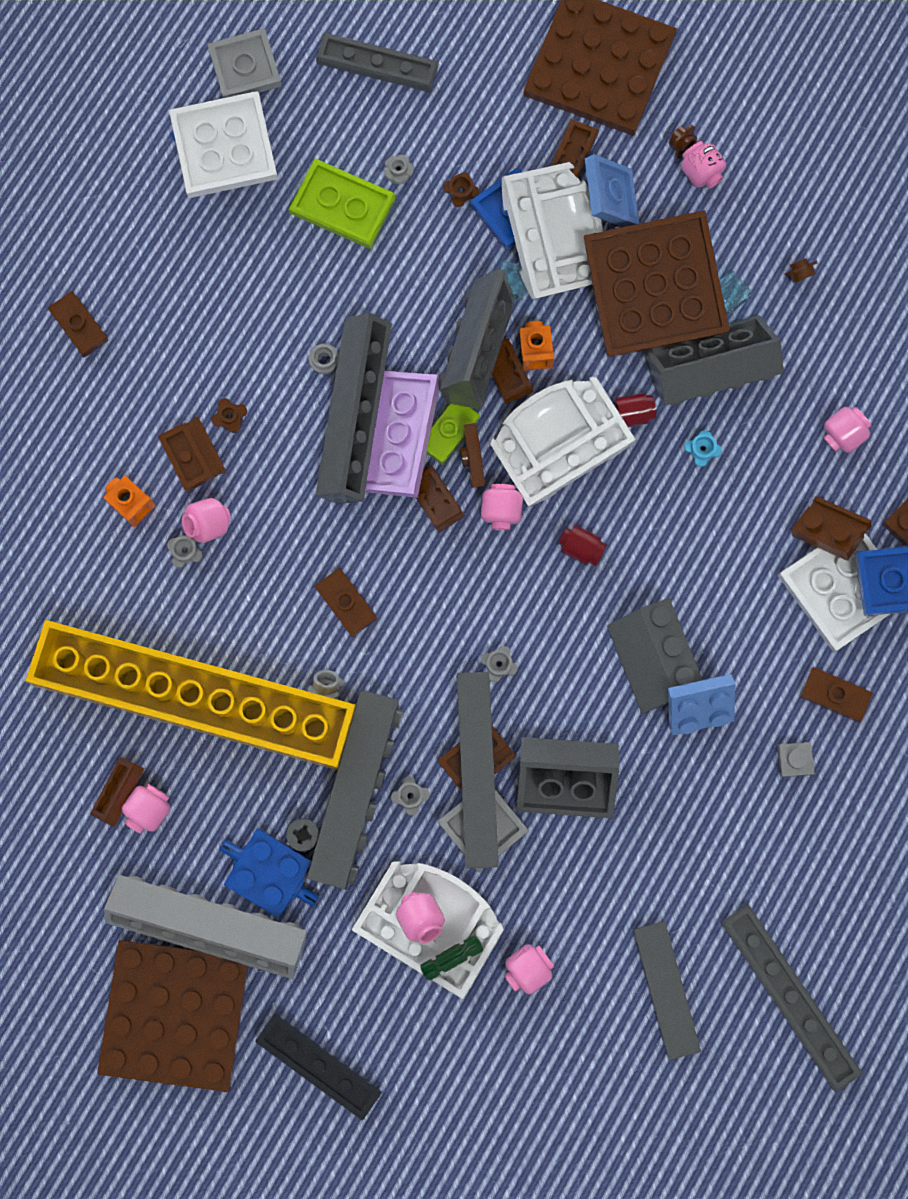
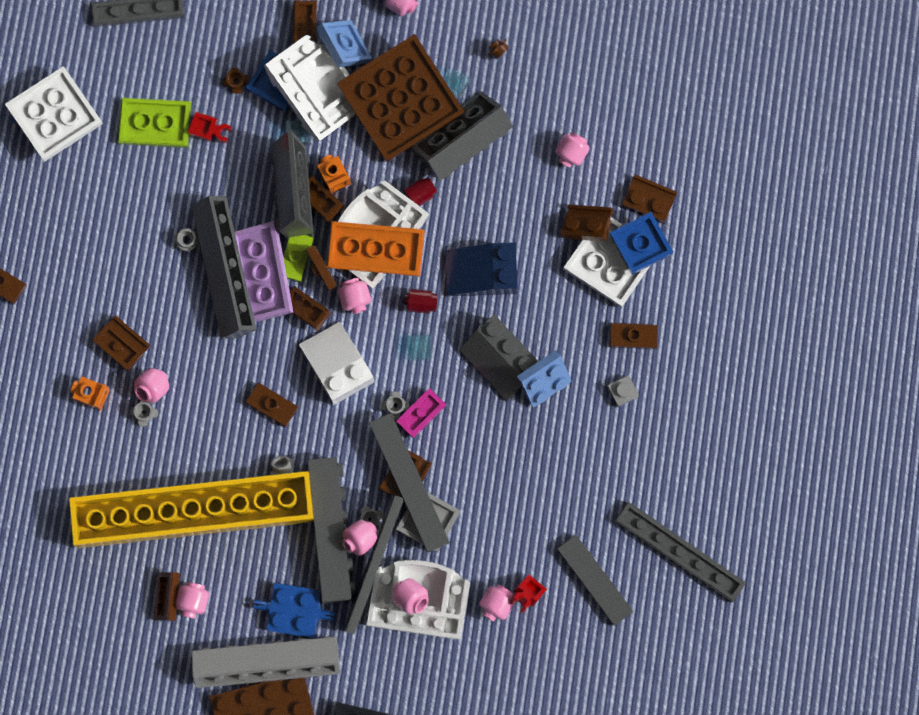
camera: 25 degrees left, 0 degrees up
(234, 423) = (131, 301): reddish brown plate -> none
(244, 64) = (43, 48): light grey plate -> none
(307, 837) = (305, 577): dark grey wheel -> none
(386, 815) = (360, 537): none -> bright pink head
(390, 856) = (373, 564): none -> dark grey tile
(395, 176) = (187, 88): light grey plate -> none
(402, 232) = (206, 127): none -> red plate
(447, 582) = (337, 363): none -> white slope
(451, 957) = (442, 614): dark green axle -> none
(527, 686) = (421, 413): none -> dark pink plate
(551, 458) = (375, 248): none -> orange tile
(558, 603) = (419, 347): none -> clear light blue plate
(567, 777) = (473, 464): dark grey slope -> none
(574, 972) = (528, 593): none -> red plate
(675, 536) = (482, 270): none -> dark blue slope
(703, 439) = (478, 194): medium azure plate -> none

